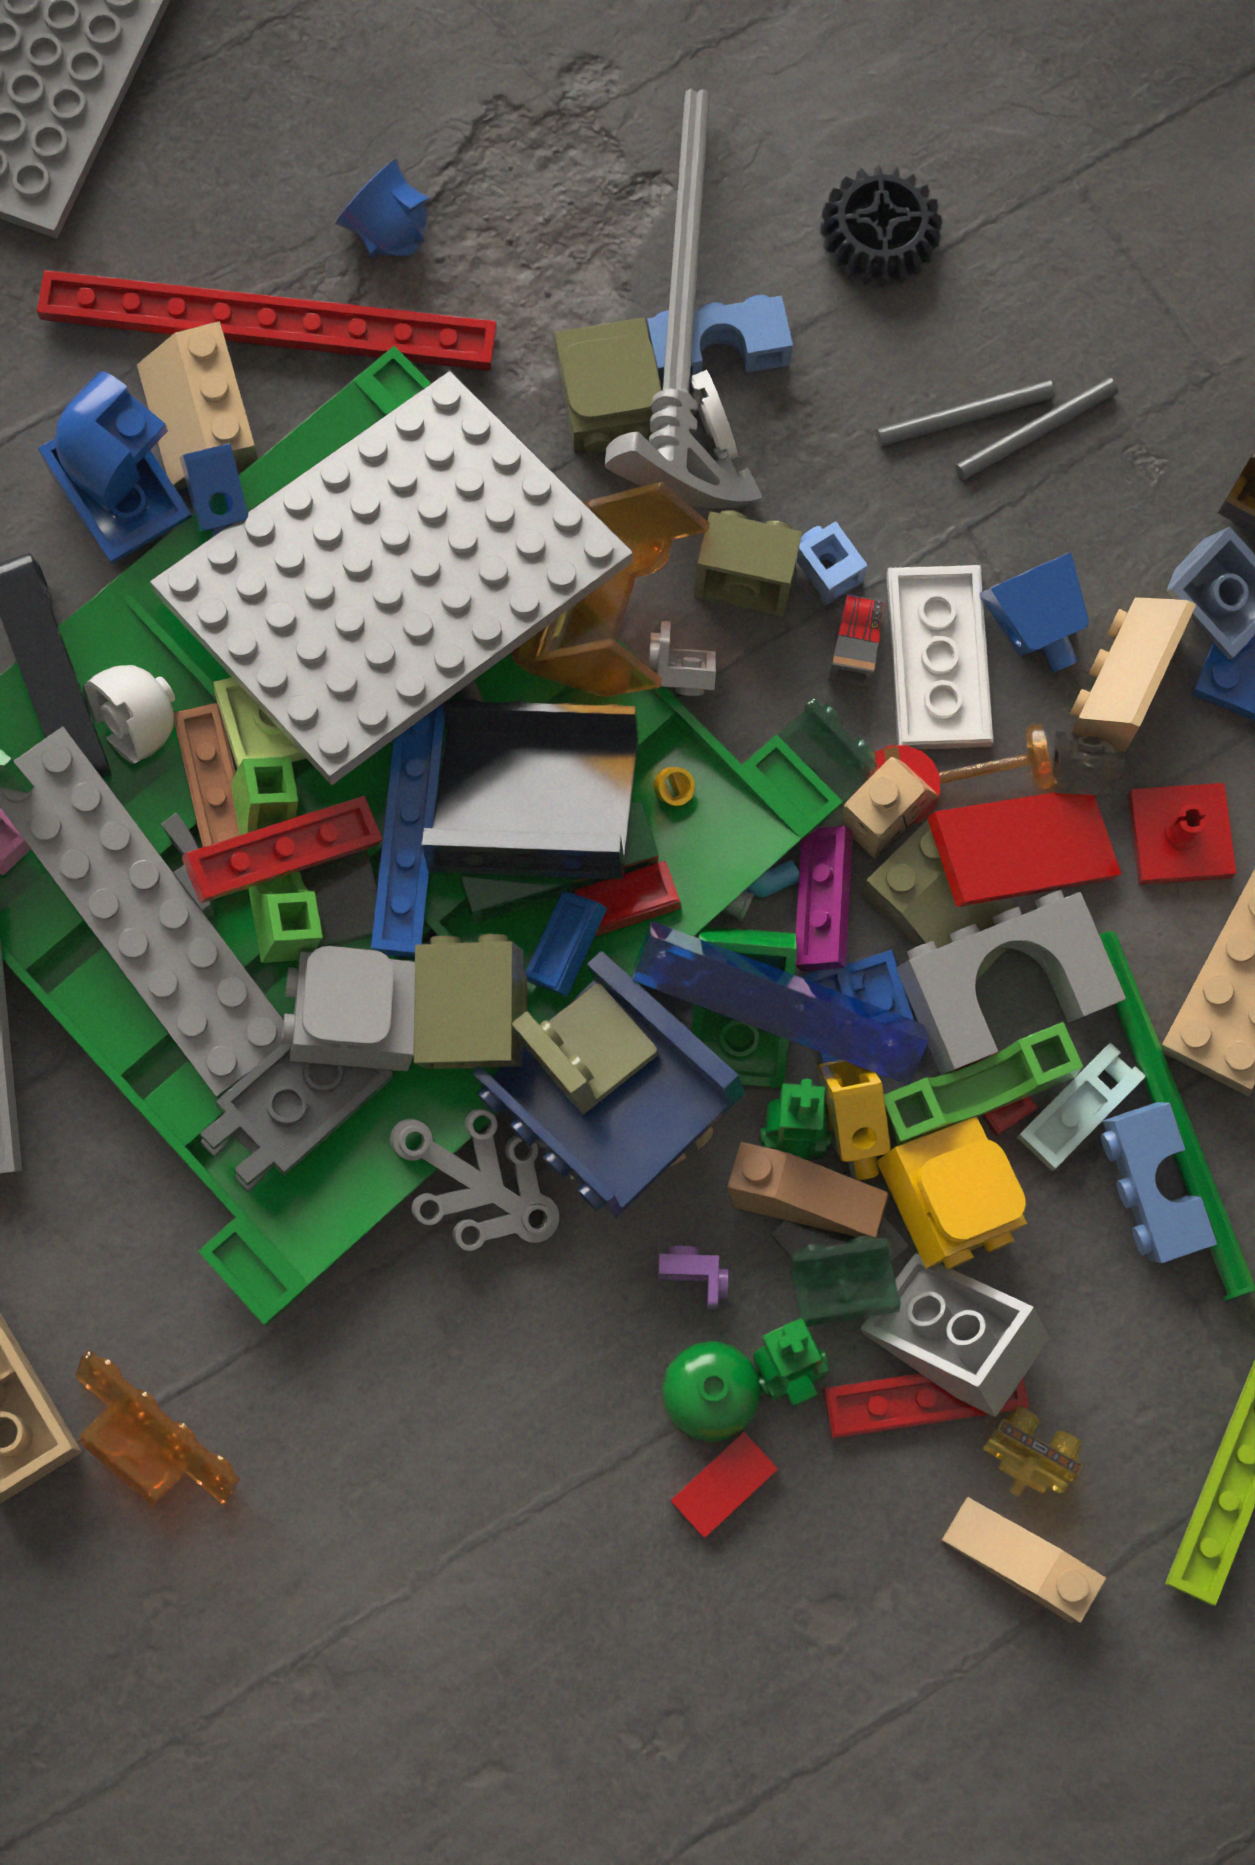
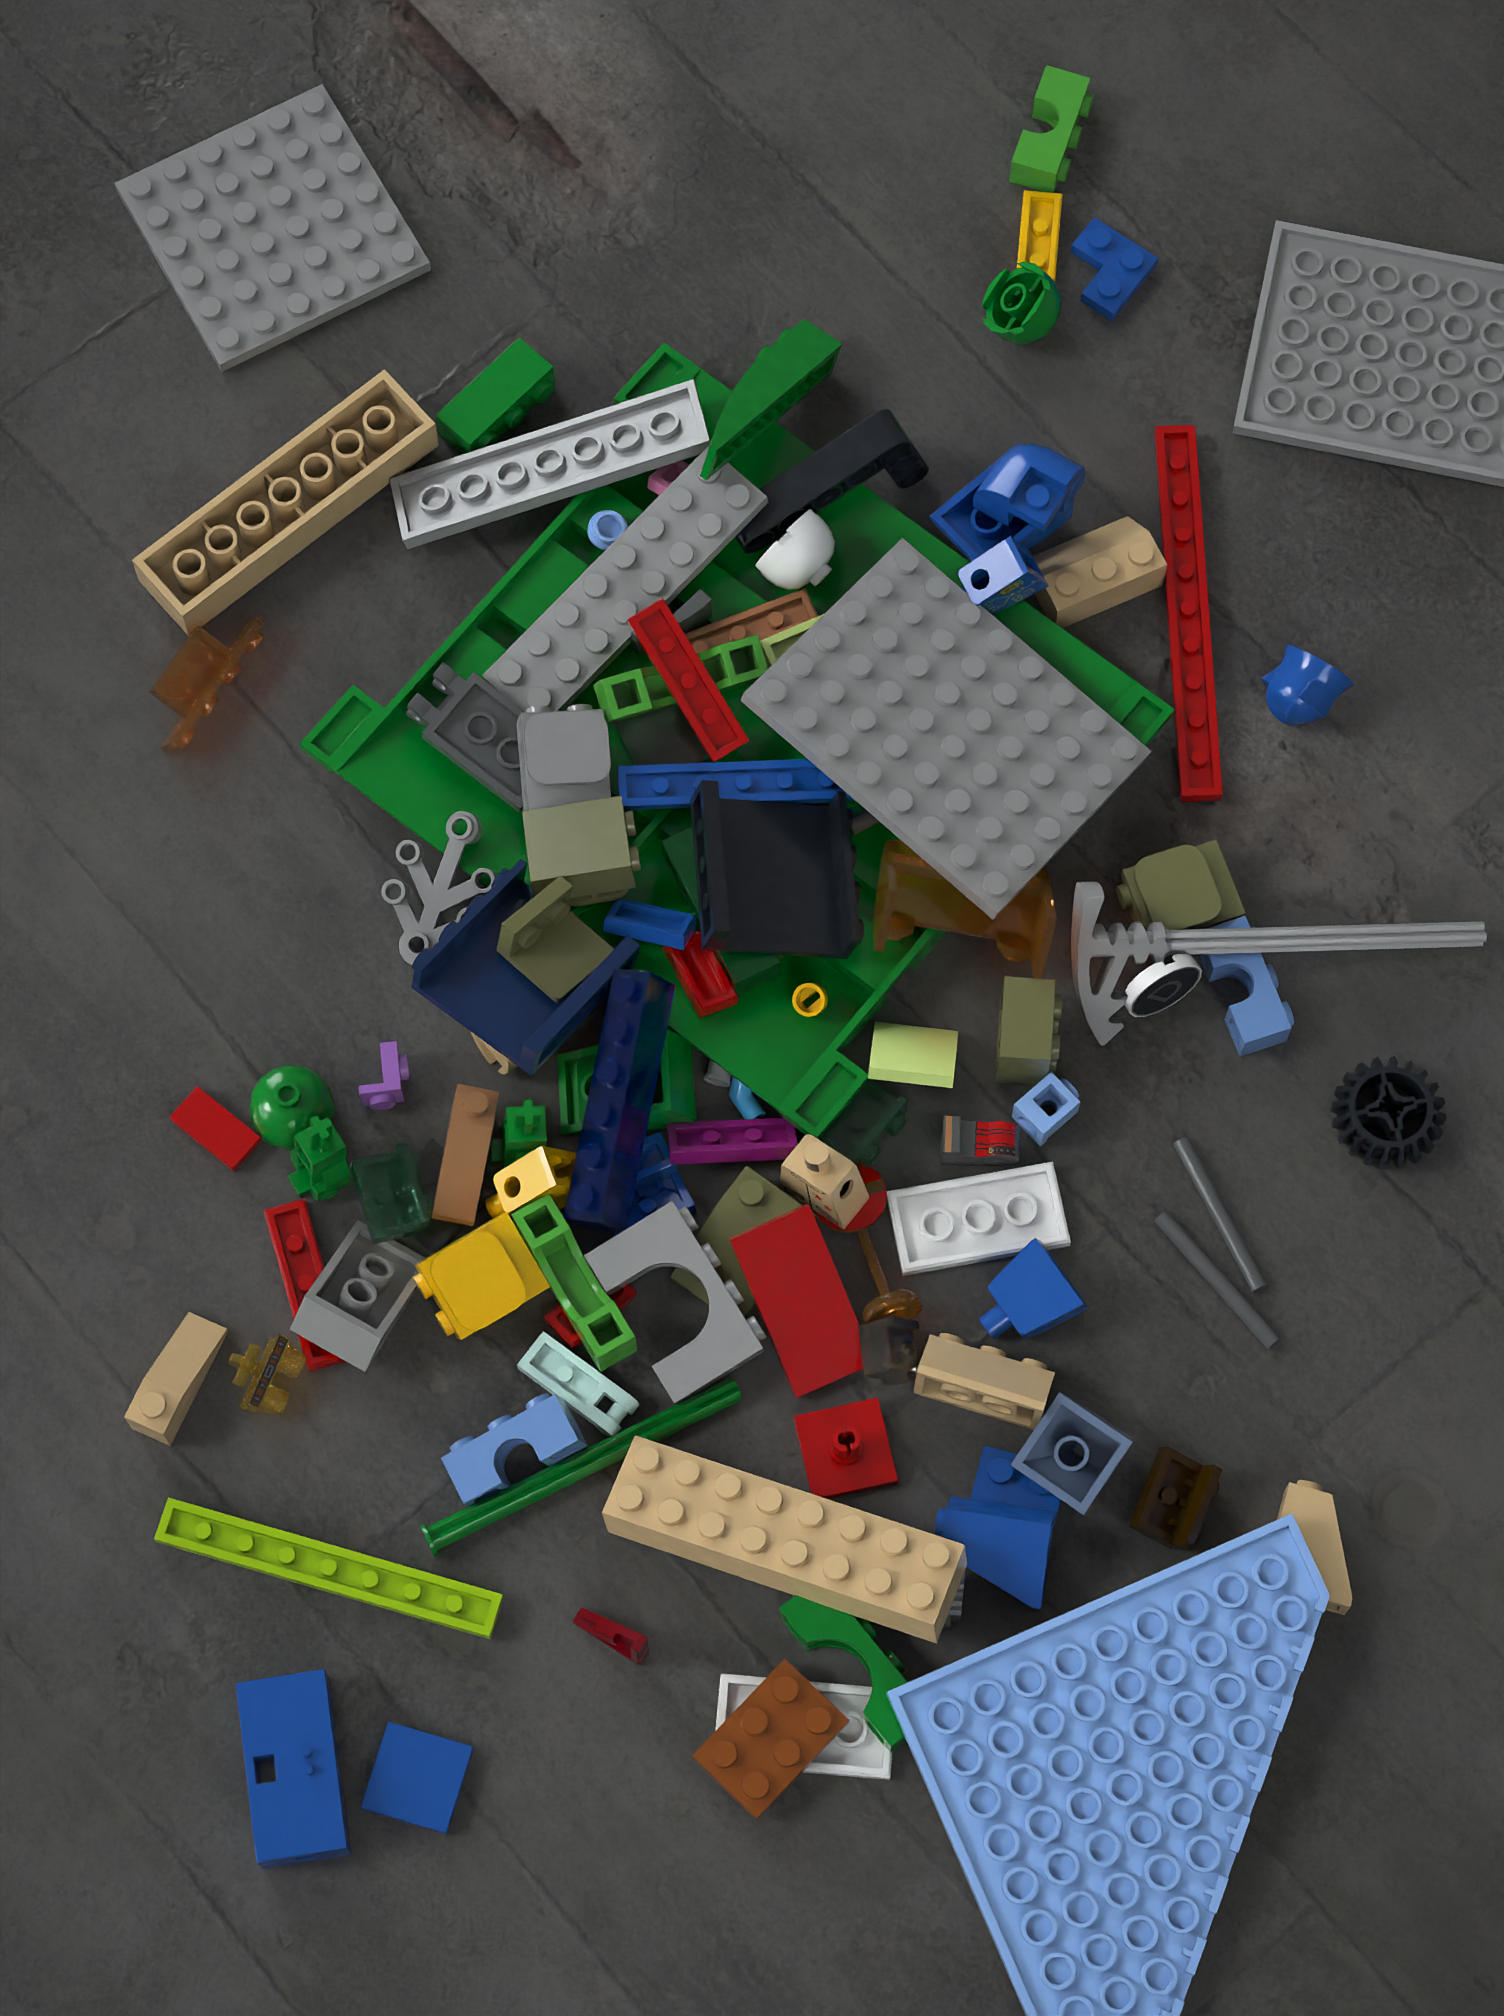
camera: 85 degrees right, 5 degrees down
(53, 925) = (605, 528): none -> light blue plate
(681, 668) = (920, 986): light grey bracket -> none
(752, 687) = (913, 1054): none -> yellowish green slope

